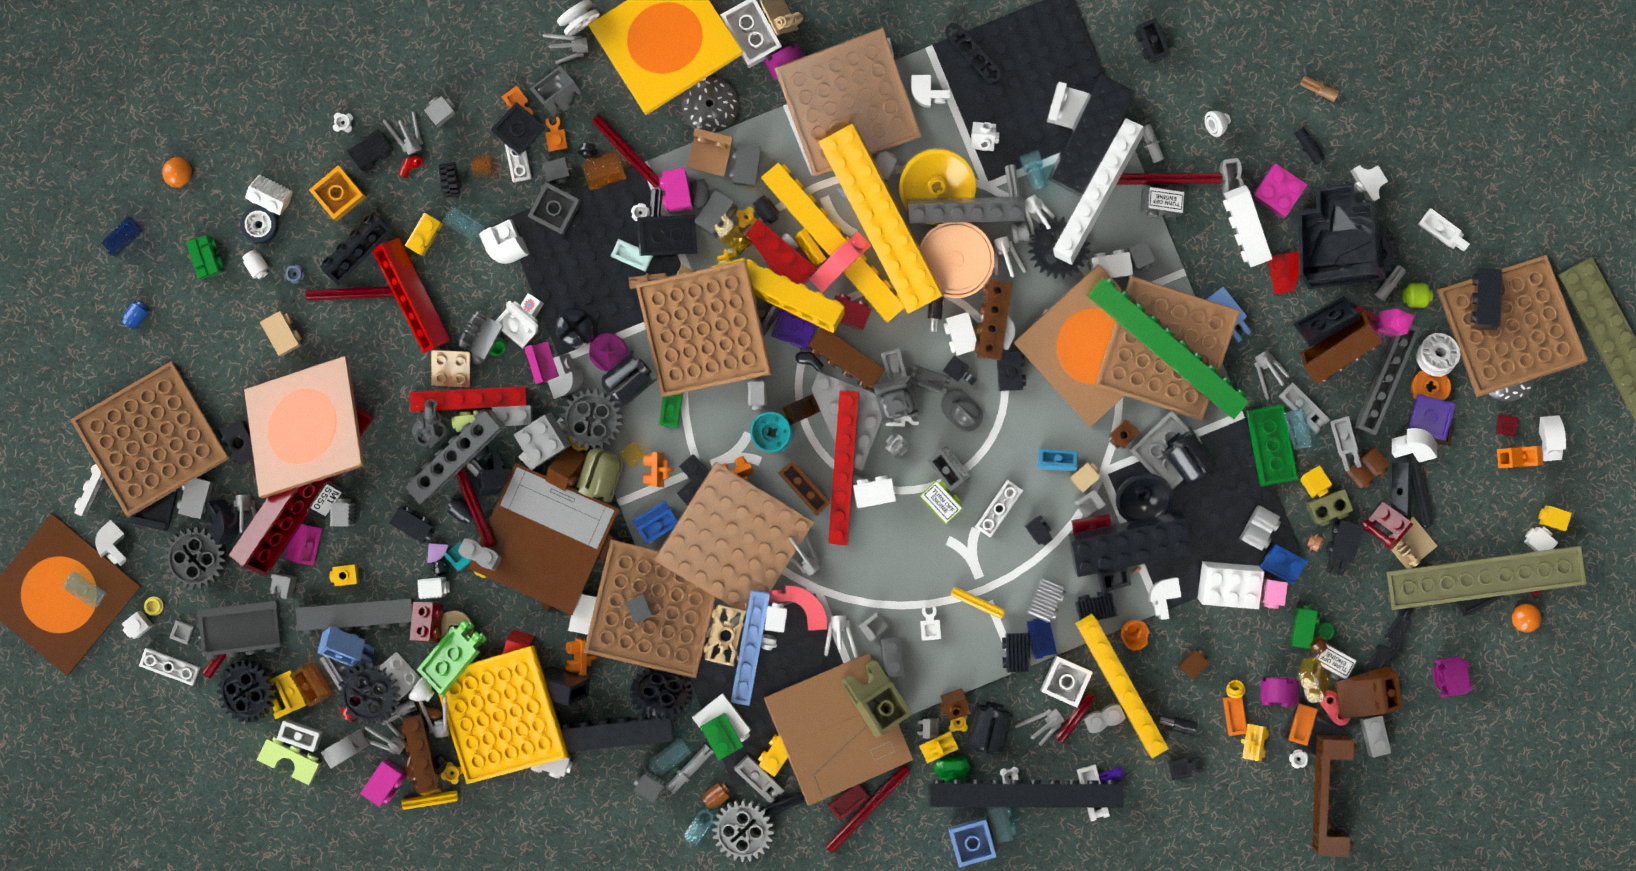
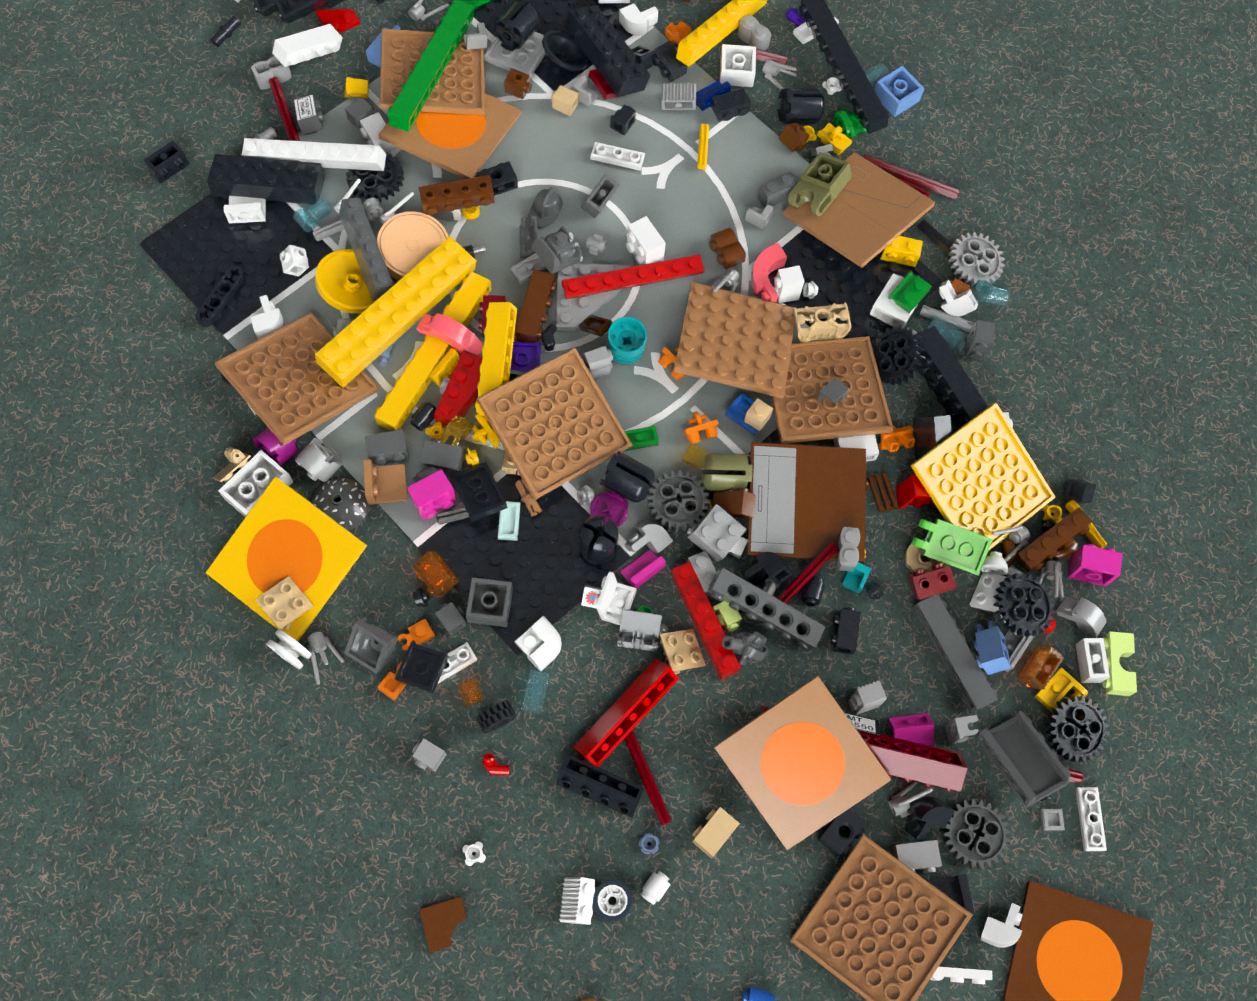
camera: 115 degrees left, 20 degrees down
(83, 589) = (1062, 939): clear light blue plate -> none
(137, 625) = (1069, 866): white brick -> none
(153, 606) = (1041, 859): light yellow plate -> none
(205, 257) = (668, 946): green brick -> none
(298, 77) = (441, 921): none -> reddish brown tile
(337, 193) = (550, 826): light orange brick -> none
(352, 575) = (915, 676): yellow brick -> none
(370, 150) = (493, 812): black brick -> none
(411, 144) = (471, 771): light grey plant -> none
(424, 234) = (560, 723): yellow brick -> none
(433, 588) = (897, 585): white brick -> none
(436, 552) = (861, 601): lavender tile -> none
(463, 810) = (1080, 491): none -> black panel
(528, 627) = (877, 478): none -> reddish brown tile
(622, 25) = (284, 603): none -> tan hinge
(626, 151) = (409, 560): dark red axle -> none
(629, 334) = (585, 494): none -> light grey plate
(640, 207) = (465, 531): white plate -> none
(644, 527) = (758, 414): none -> tan brick
(696, 473) = (694, 391): black plate -> none
(699, 783) = (957, 304): none -> white brick
(706, 241) = (471, 457): none -> yellow plate
(750, 647) = (822, 297): medium blue plate -> none
(754, 98) = (319, 460): none -> light grey brick
(758, 778) = (928, 260): light grey plate -> none
(804, 488) = (664, 300): reddish brown brick -> none
(838, 624) = (771, 239): white plant -> none
(844, 577) = (727, 248): none -> reddish brown brick
(930, 628) = (739, 172): white plate -> none
(941, 501) = (630, 196): brick -> none
(958, 369) = (512, 221): black plate -> none
(961, 333) = (478, 225): white brick -> none
(1057, 459) = (559, 124): dark azure brick -> none
(1180, 262) = (356, 88): none -> yellow tile
(1194, 408) = (477, 40): none -> light grey panel
(1216, 122) = (227, 99): white brick -> none
(1279, 191) = (264, 35): dark pink brick -> none
(1320, 88) = (173, 37): medium nougat axle -> none

